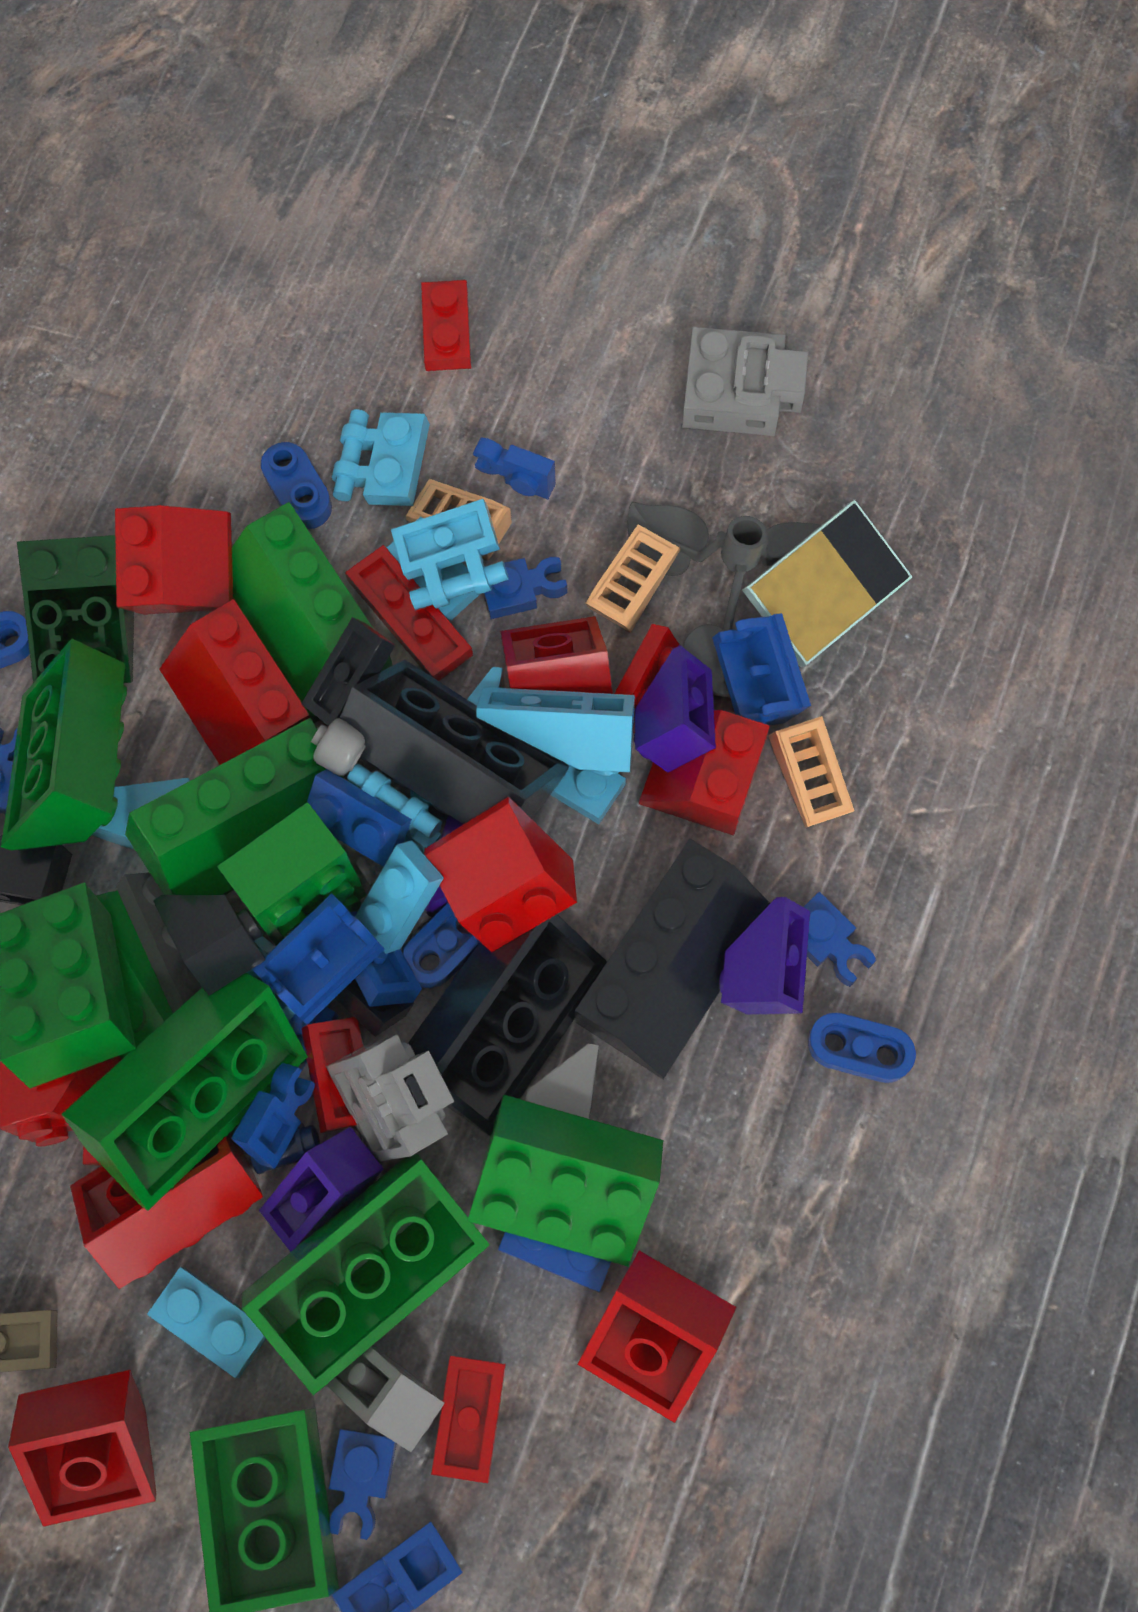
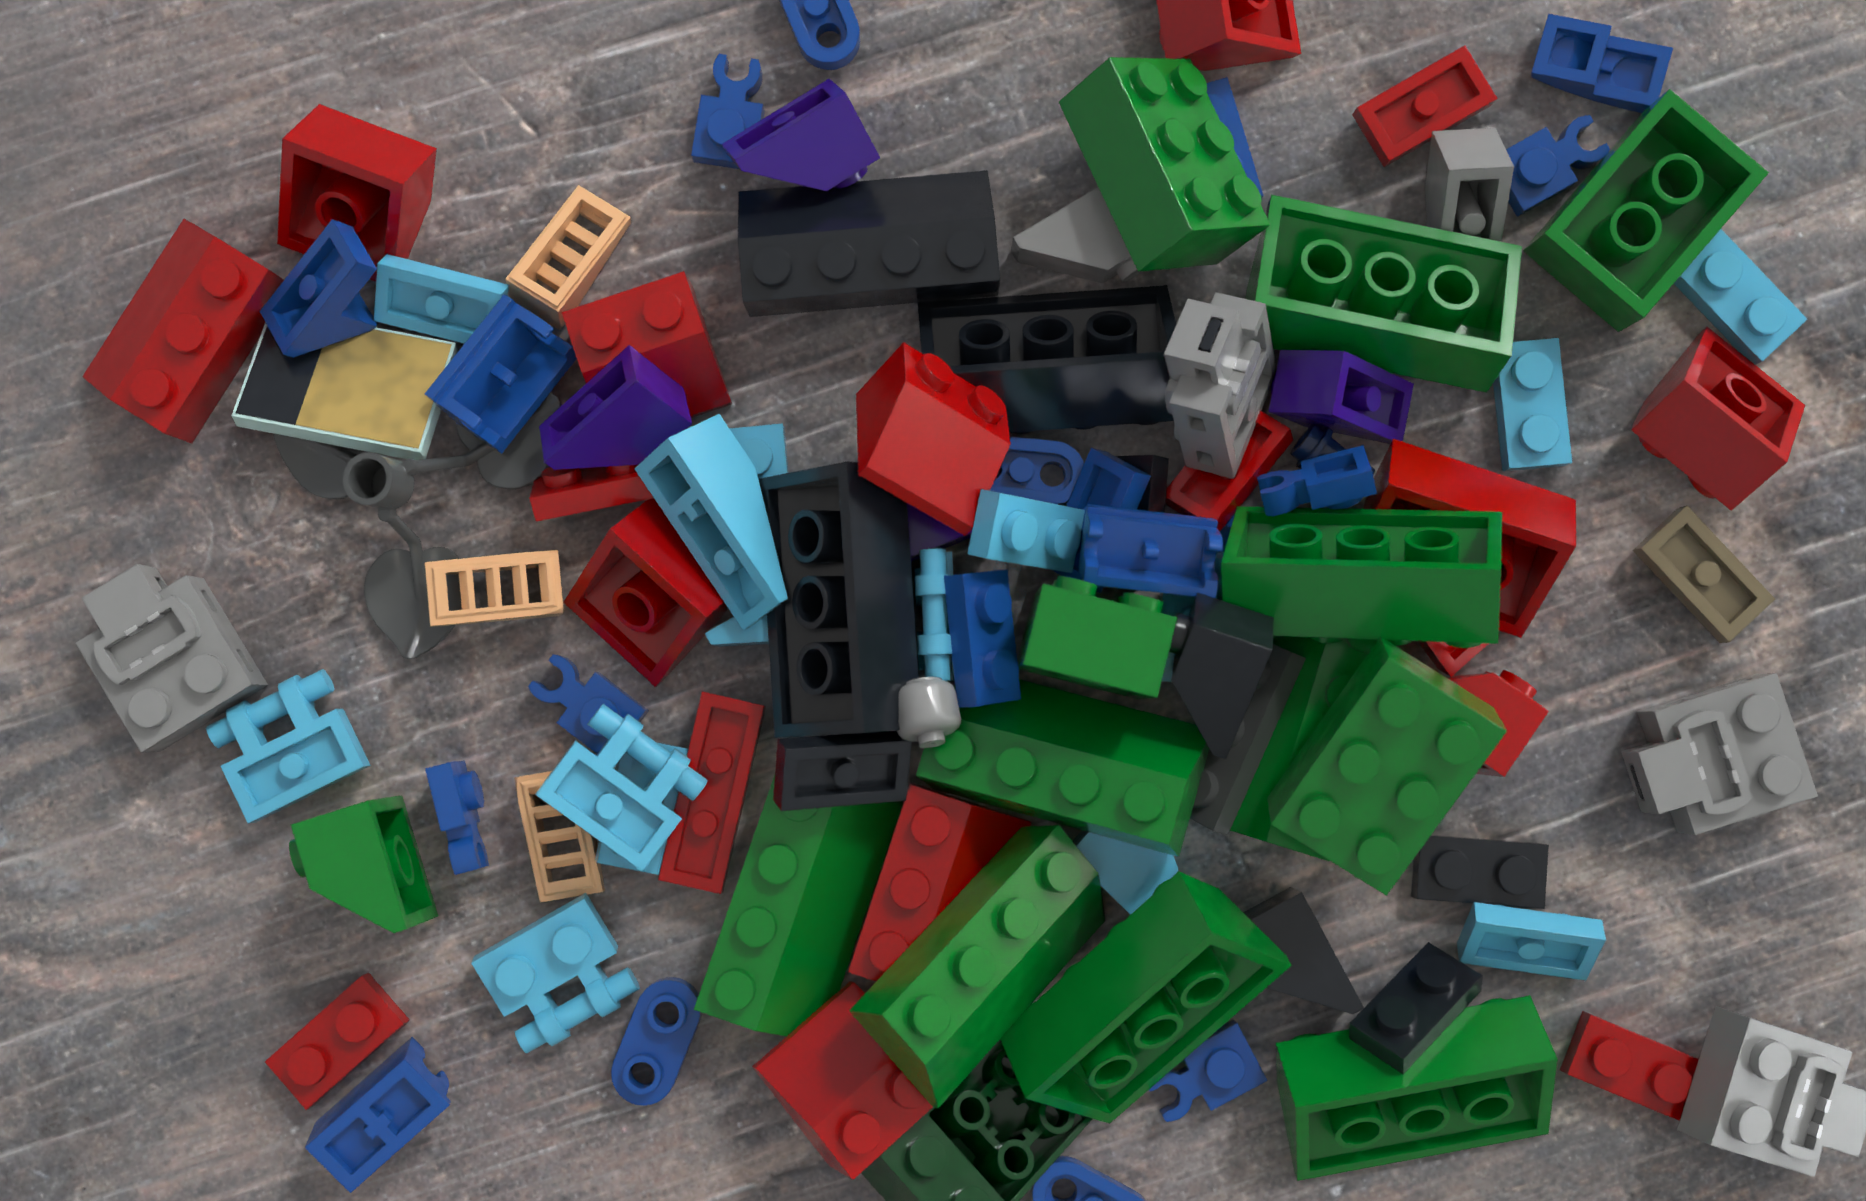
camera: 130 degrees left, 15 degrees up
(148, 1542) = (1739, 299): none -> medium azure plate
(170, 674) = (984, 960): none -> green slope
(384, 312) = (379, 1116): none -> blue hinge
(524, 394) = (366, 862): none -> green slope
(620, 404) = (296, 763): none -> medium azure plate
(843, 669) = (433, 298): none -> medium azure plate
(892, 602) = (321, 294): none -> blue slope
(933, 519) = (184, 333): none -> red slope
(950, 671) = (355, 176): none -> red slope

